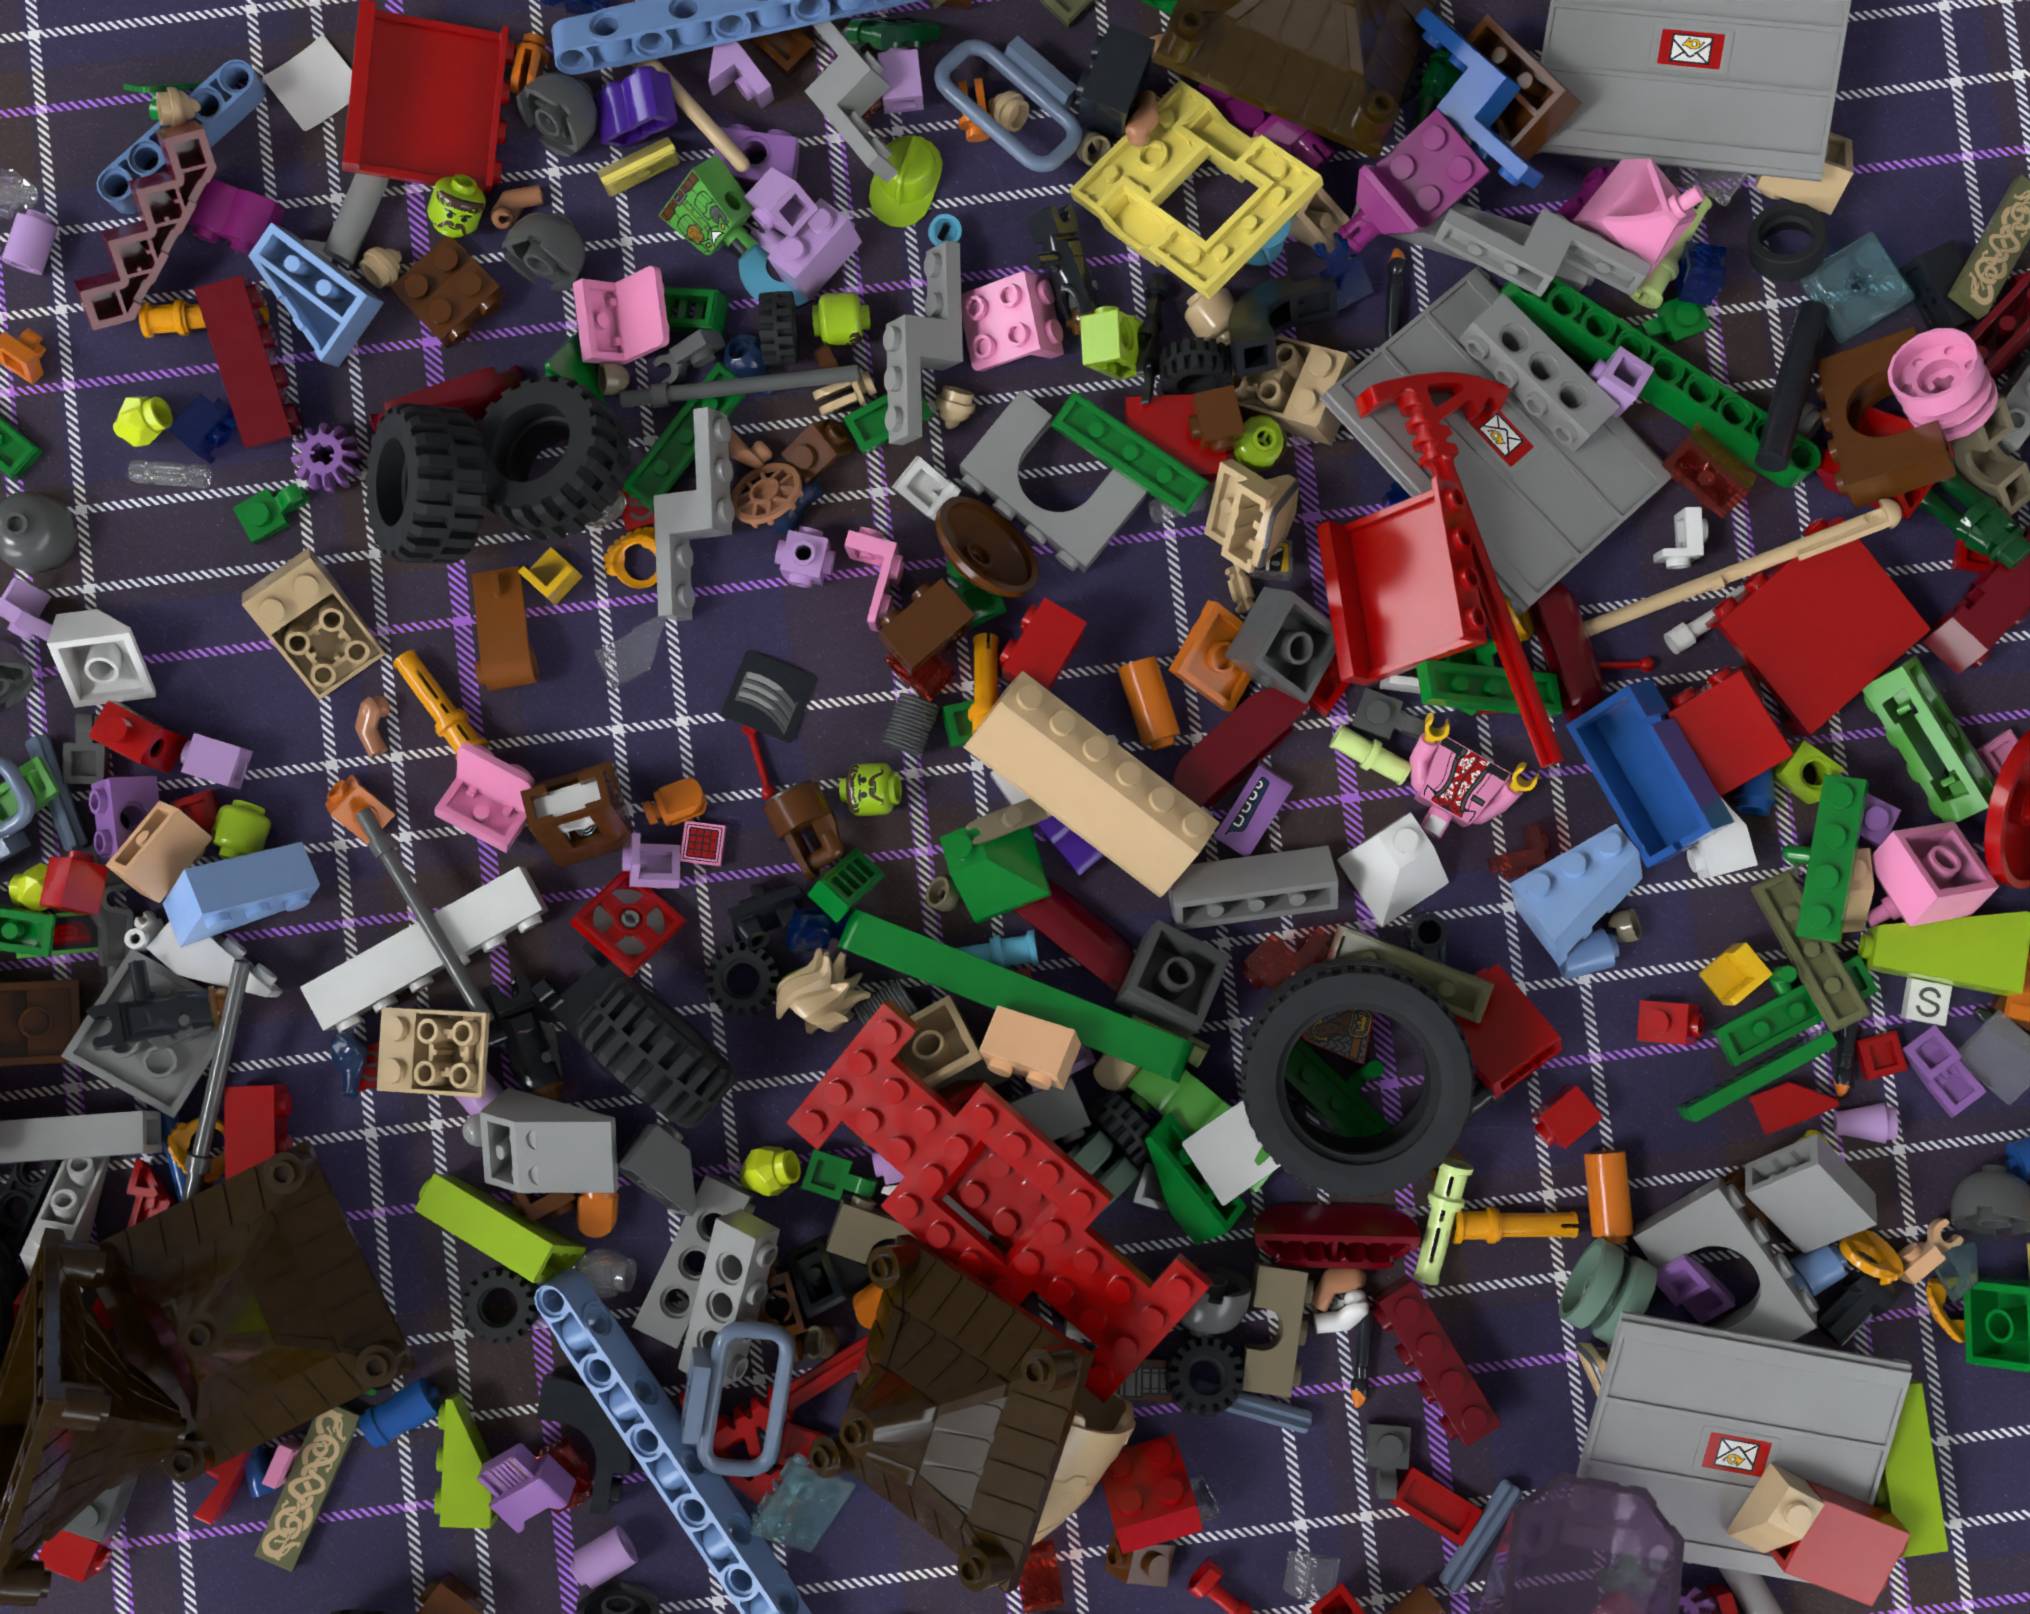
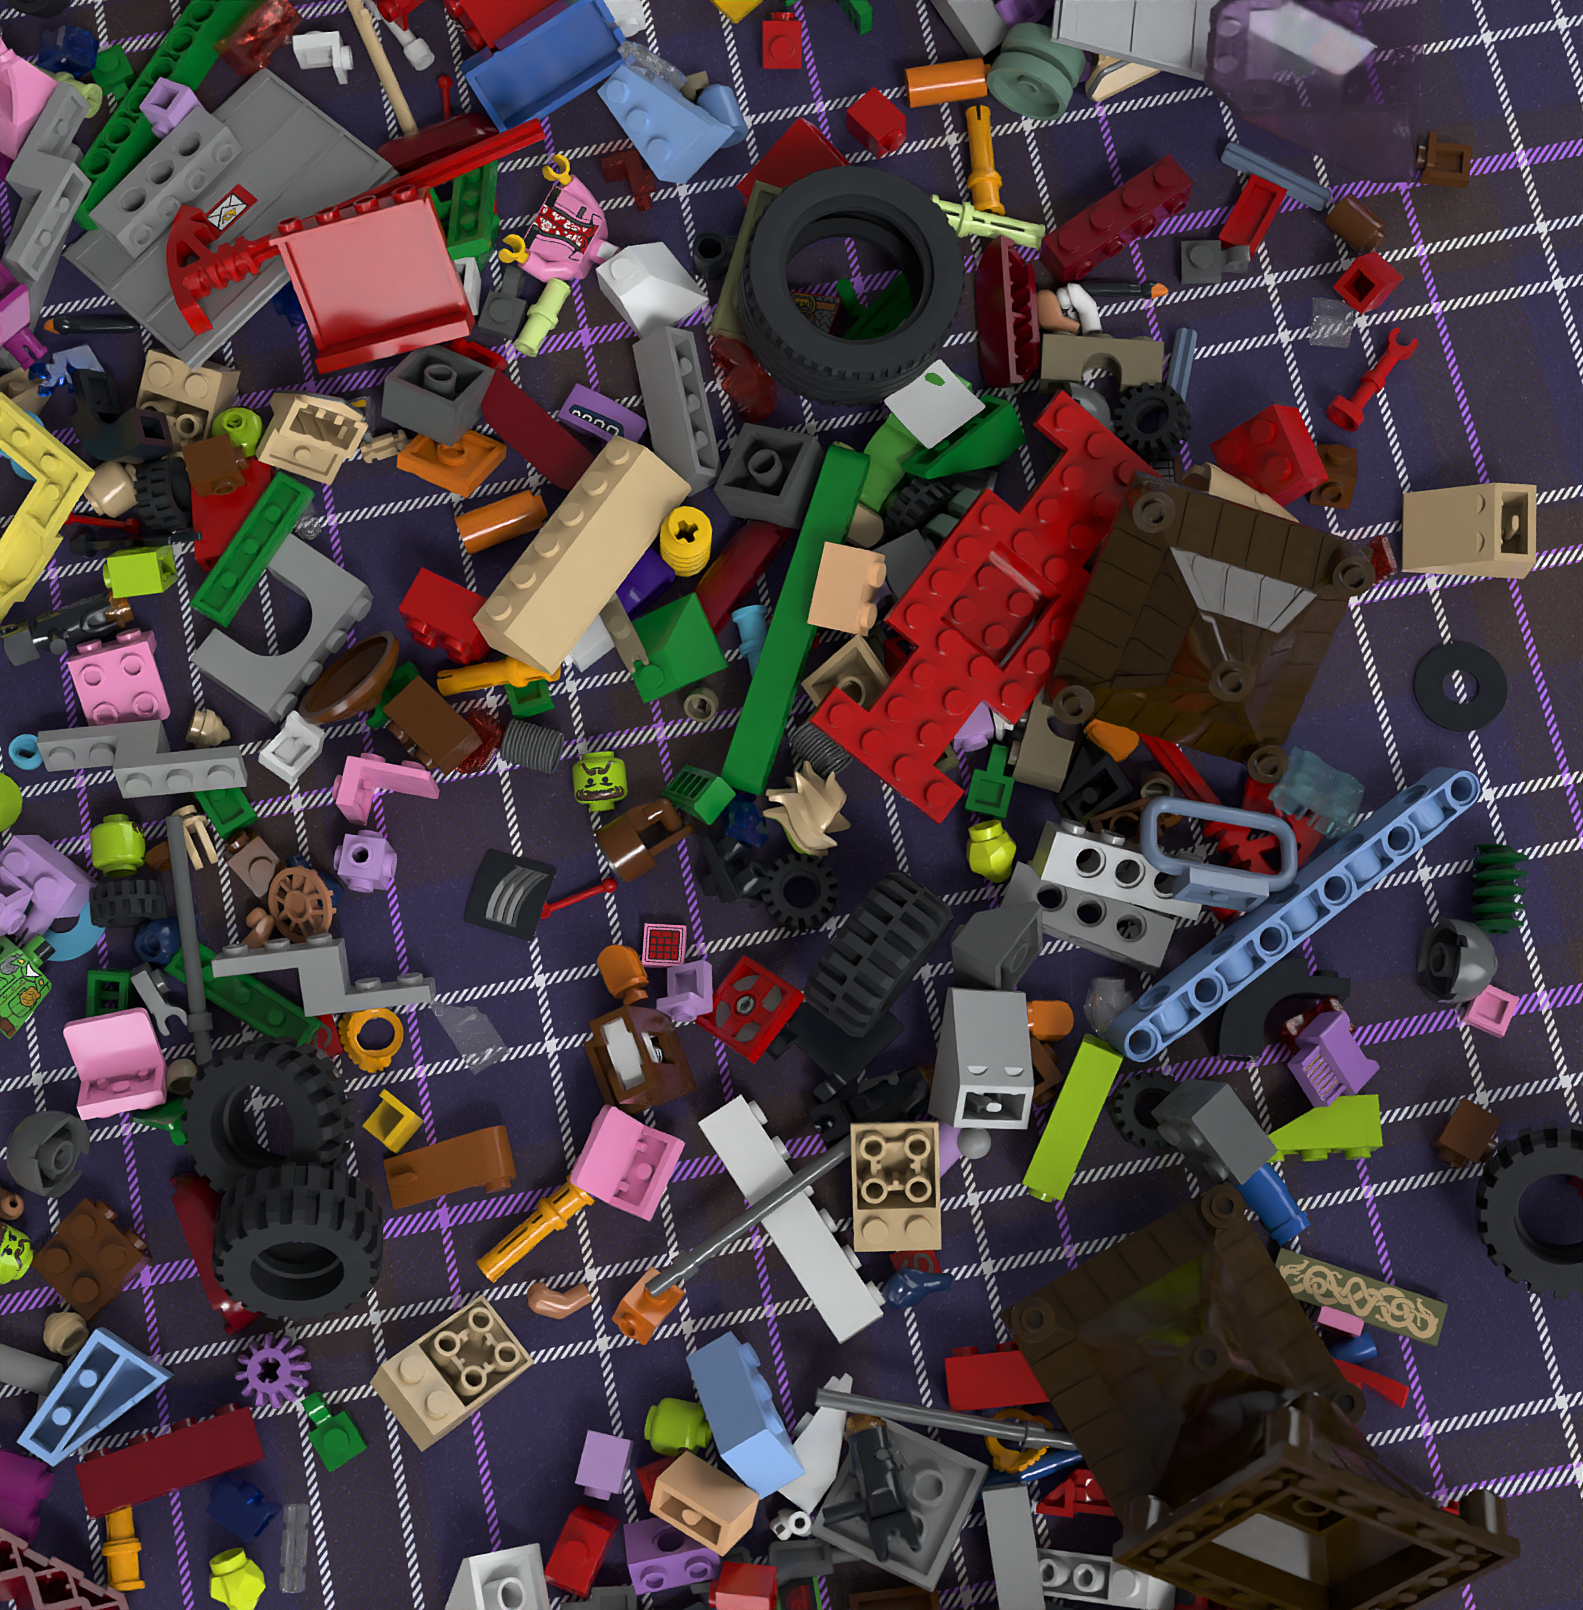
camera: 80 degrees left, 10 degrees down
(457, 1362) = (1213, 1131): none -> dark grey brick
(603, 1558) = (1395, 984): lavender brick -> none
(1100, 903) = (686, 541): none -> yellow piece
(1175, 332) = (130, 526): none -> red hinge
(1638, 881) = (650, 64): none -> clear slope

